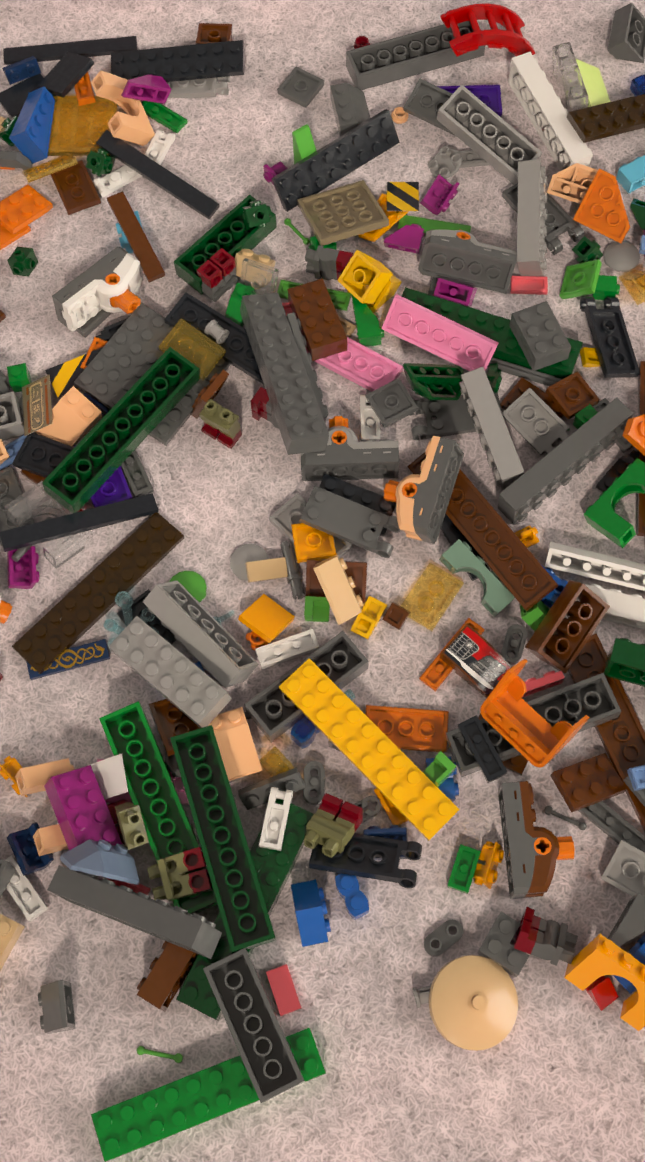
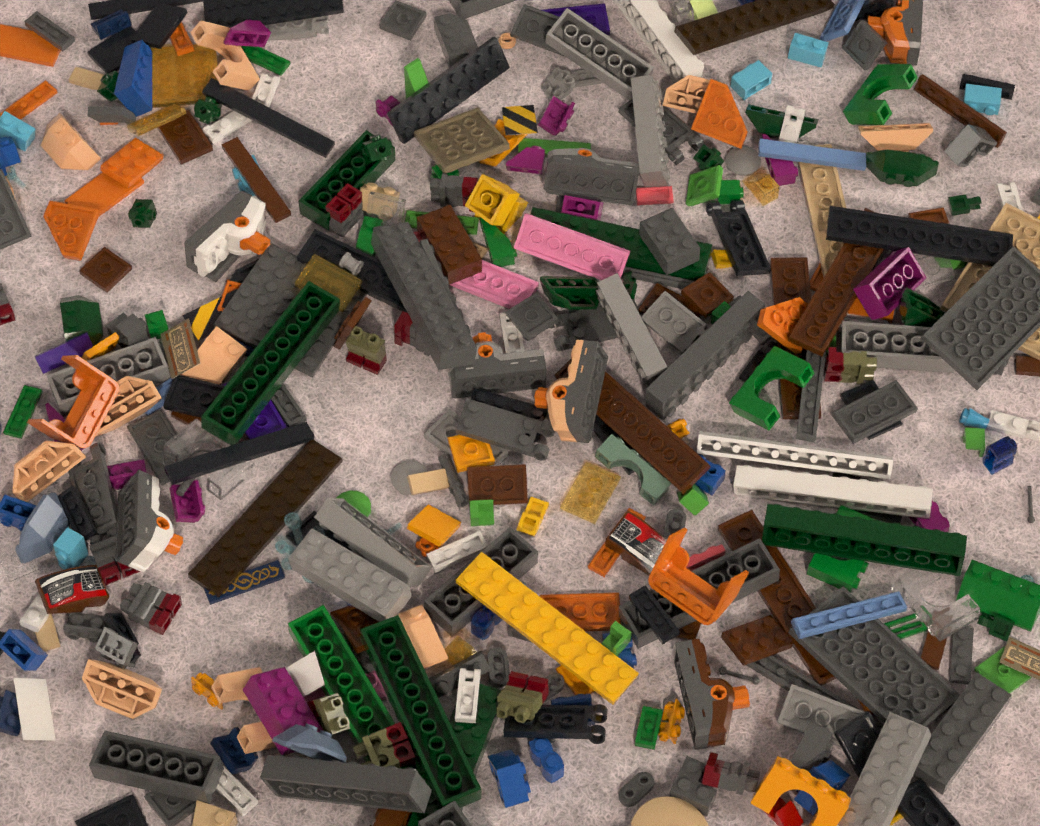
camera: 10 degrees left, 10 degrees down
(288, 222) = (426, 170): bright green hinge -> none
(338, 588) = (501, 488): tan slope -> none
(396, 615) = (559, 512): reddish brown tile -> none
(567, 626) = (723, 503): reddish brown slope -> none

